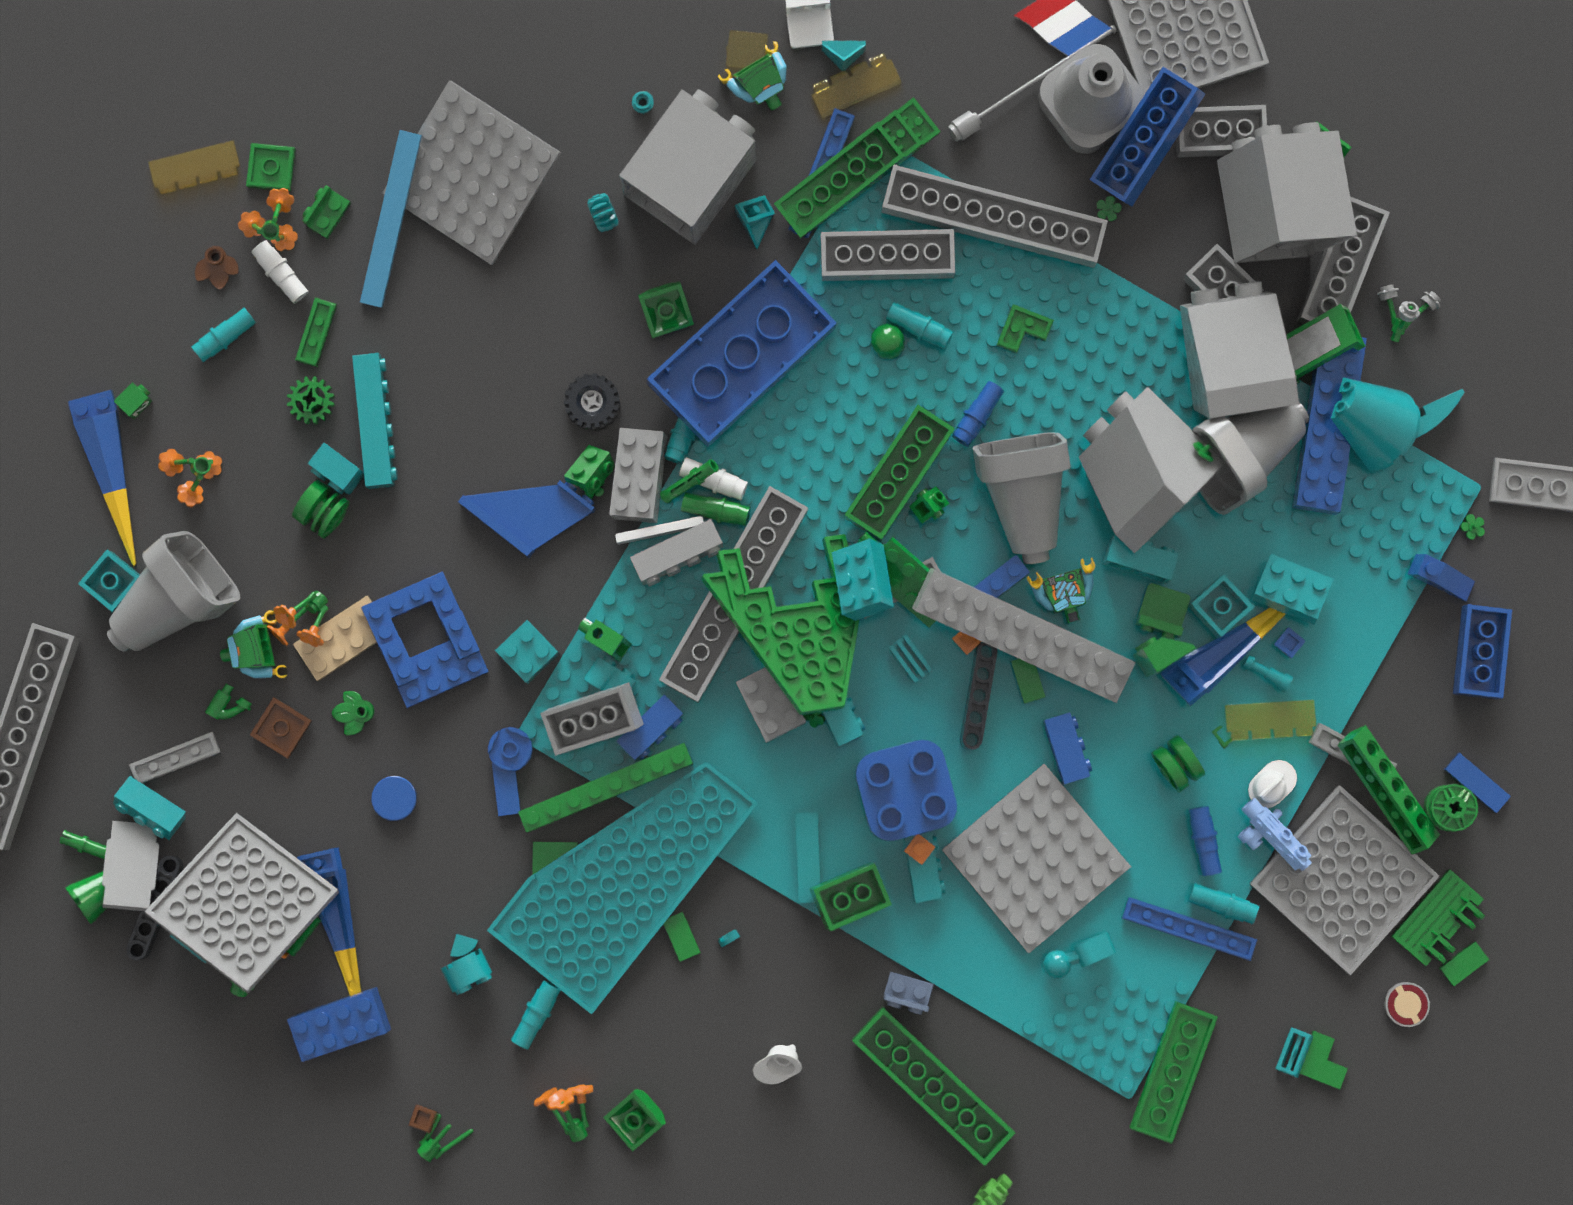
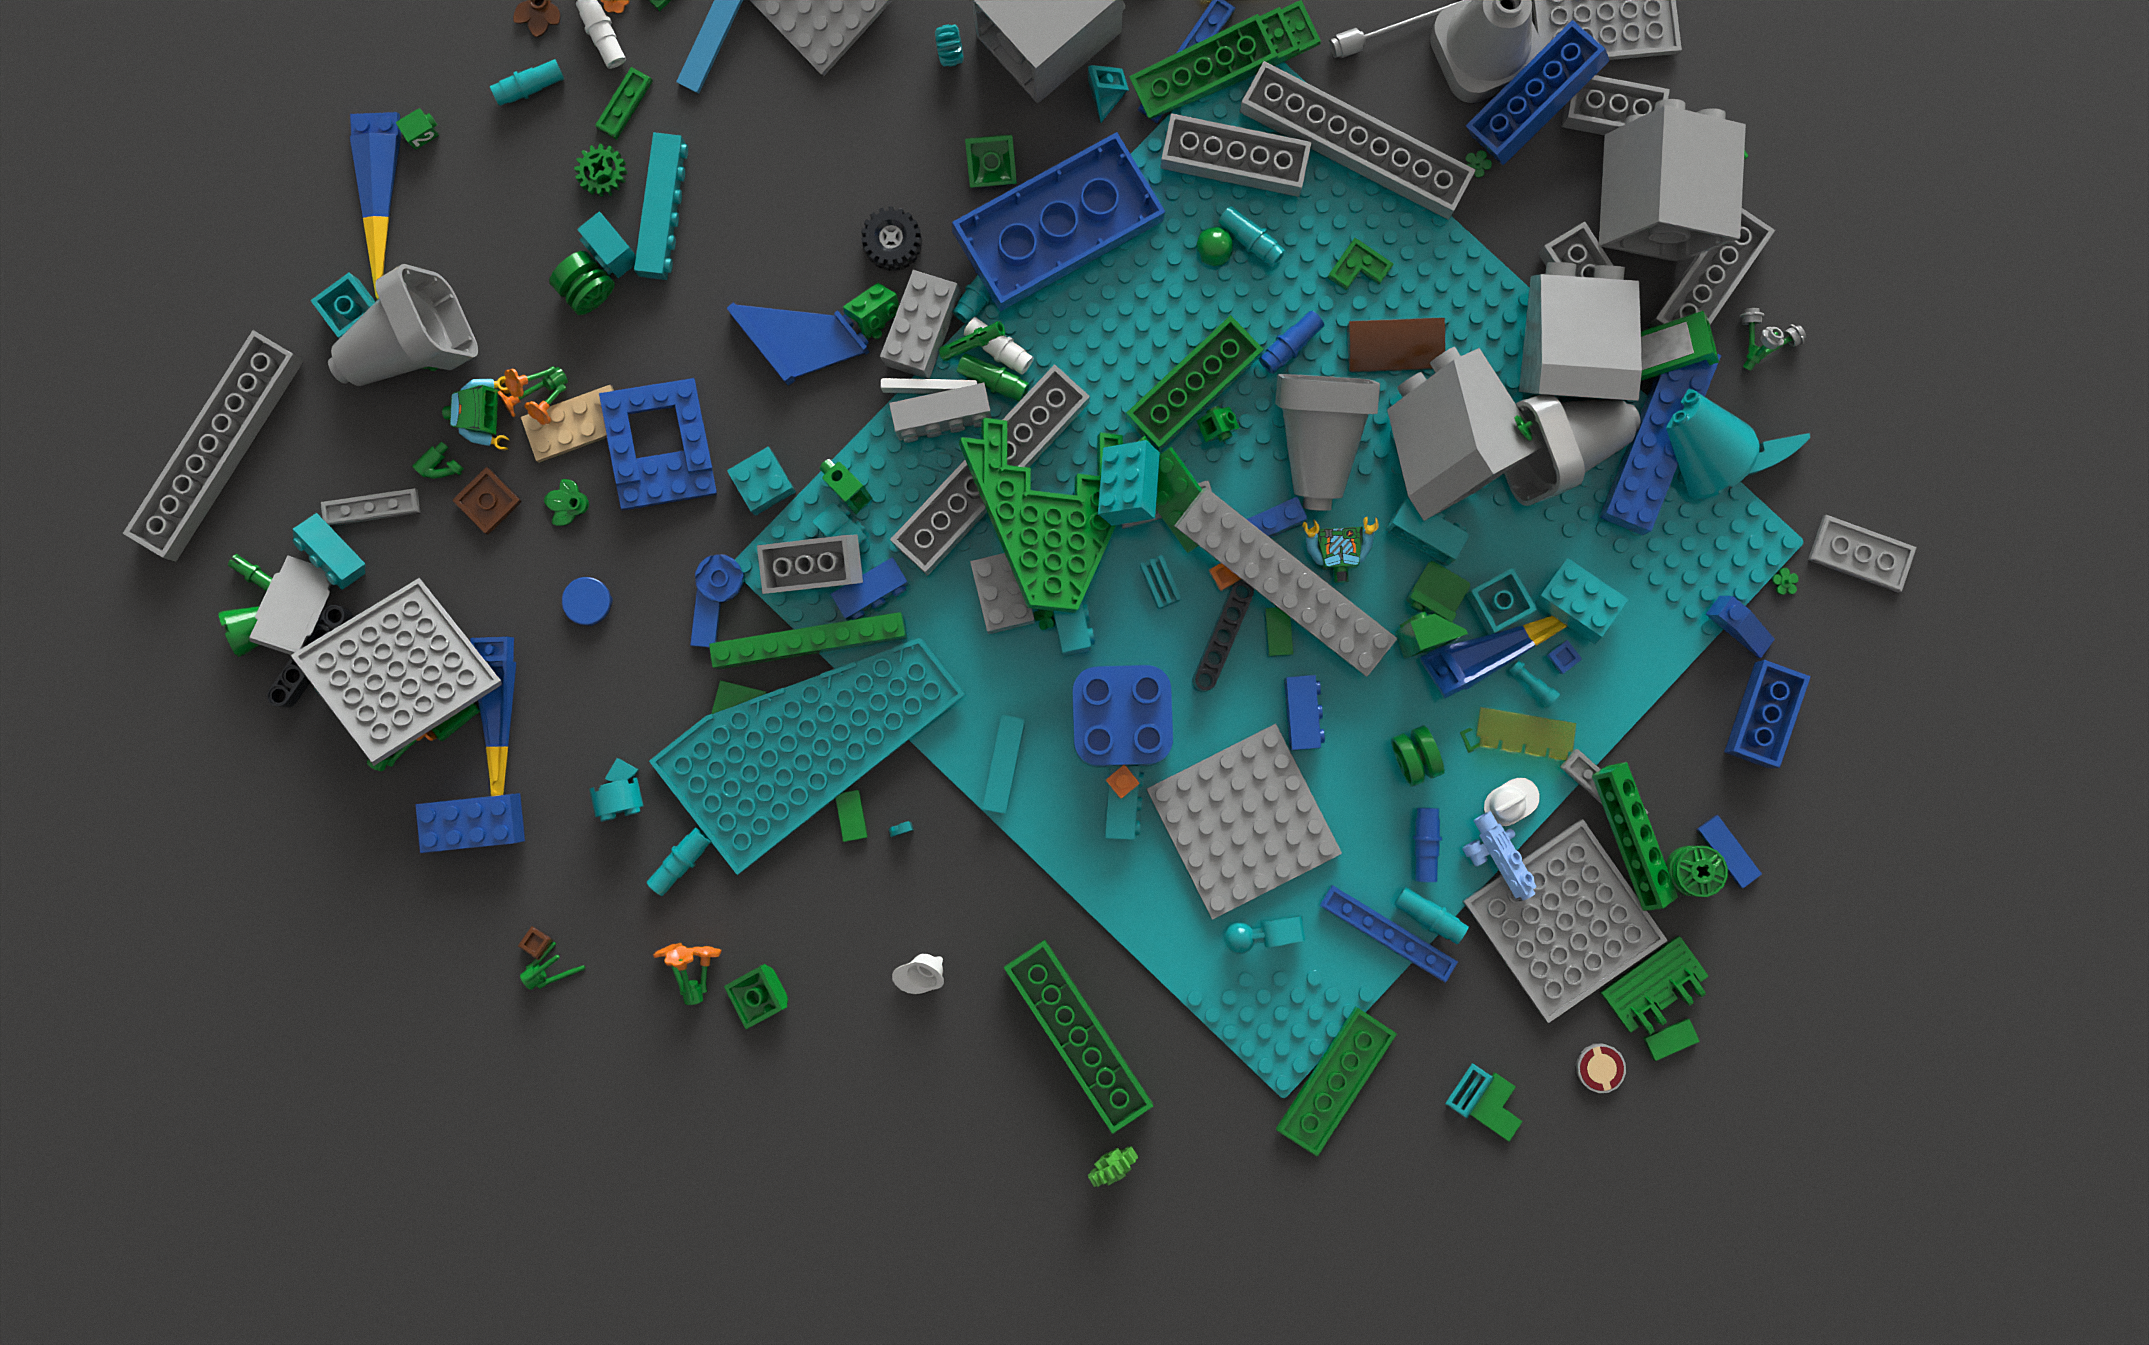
camera: 15 degrees right, 0 degrees up
(204, 465) = (478, 213): orange plant -> none
(850, 896) = (1037, 814): green brick -> none
(908, 992) = (1075, 930): sand blue bracket -> none
(1072, 393) = (1394, 344): none -> reddish brown slope

